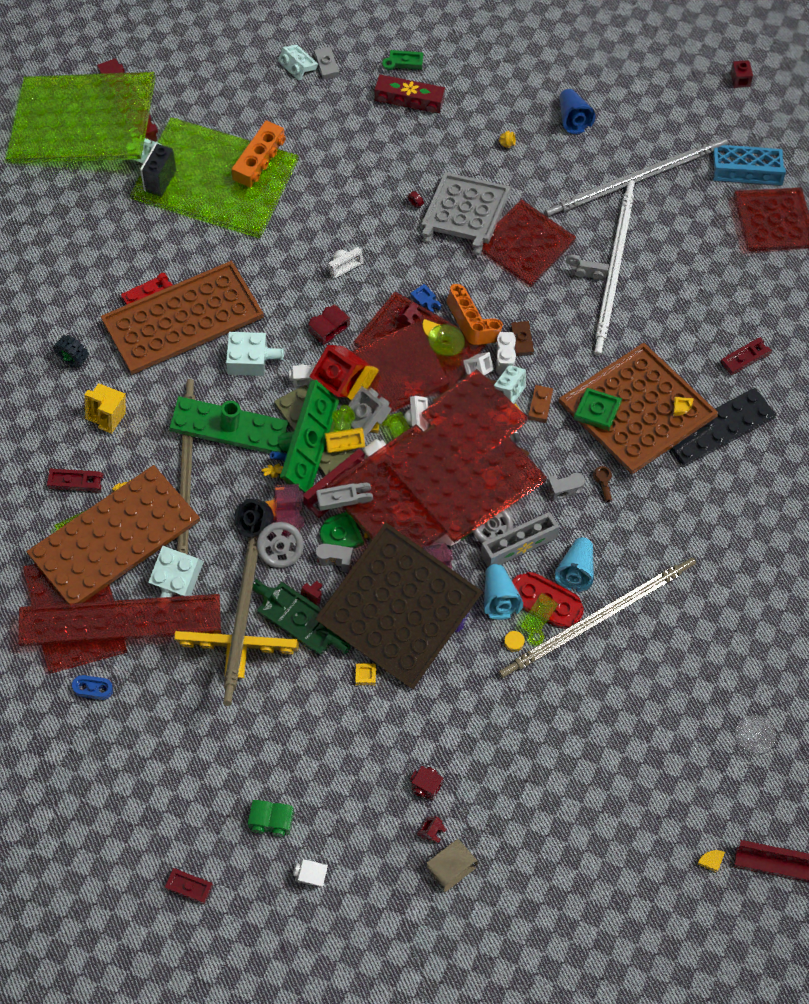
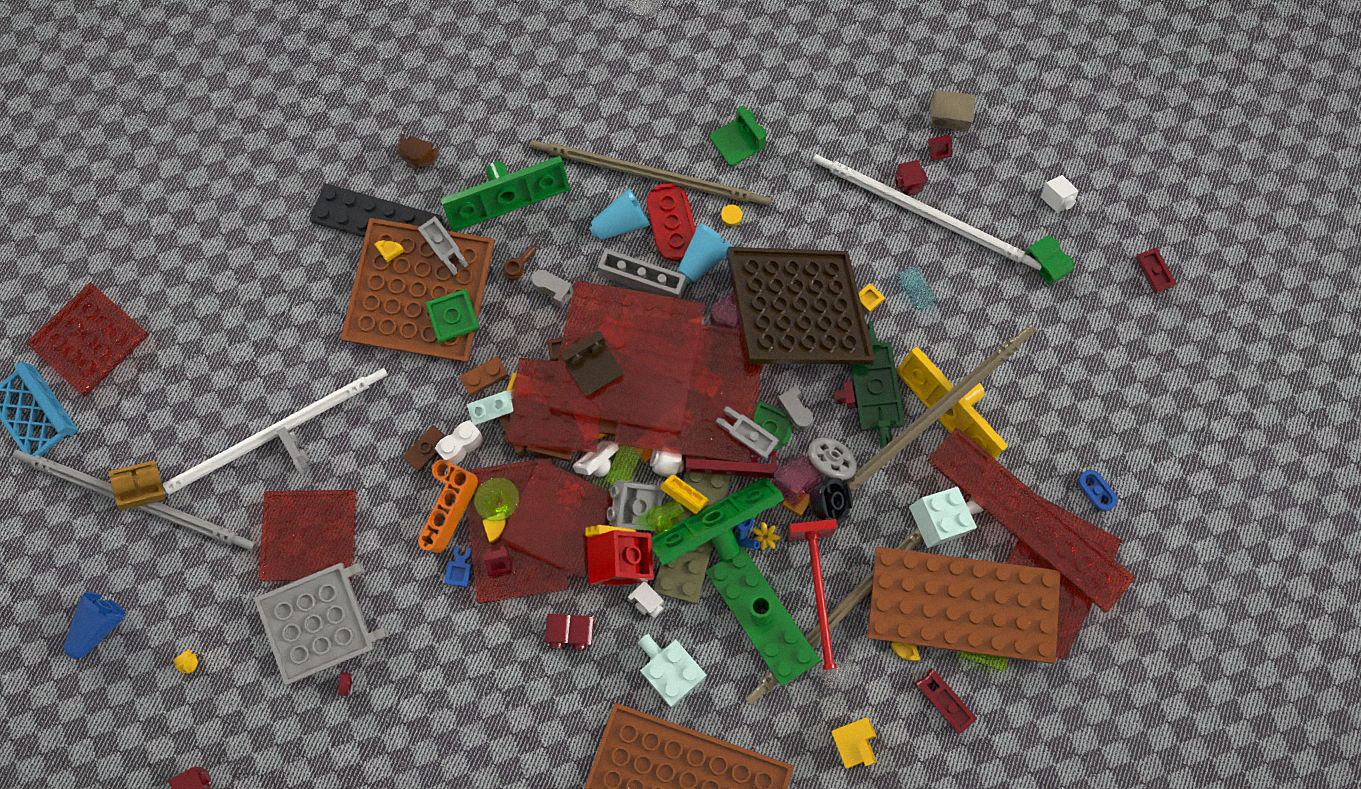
camera: 130 degrees left, 10 degrees up
(154, 440) = (837, 676): none -> clear plate
(247, 489) = (812, 532): none -> red tile
(342, 712) = (916, 288): none -> clear light blue plate
(345, 261) = (483, 684): white tile -> none
(395, 771) = (927, 212): none -> white axle
(475, 436) = (591, 364): none -> dark brown bracket
(479, 361) = (495, 452): white brick -> none
(538, 617) = (696, 208): clear neon green hinge -> none
(571, 695) = (739, 137): none -> green bracket
(643, 178) = (136, 485): none -> pearl gold plate
(653, 434) = (442, 243): none -> light grey hinge
(666, 508) = (505, 192): none -> green plate
(745, 356) = (280, 249): dark red plate -> none
(751, 482) = (416, 152): none -> reddish brown cylinder

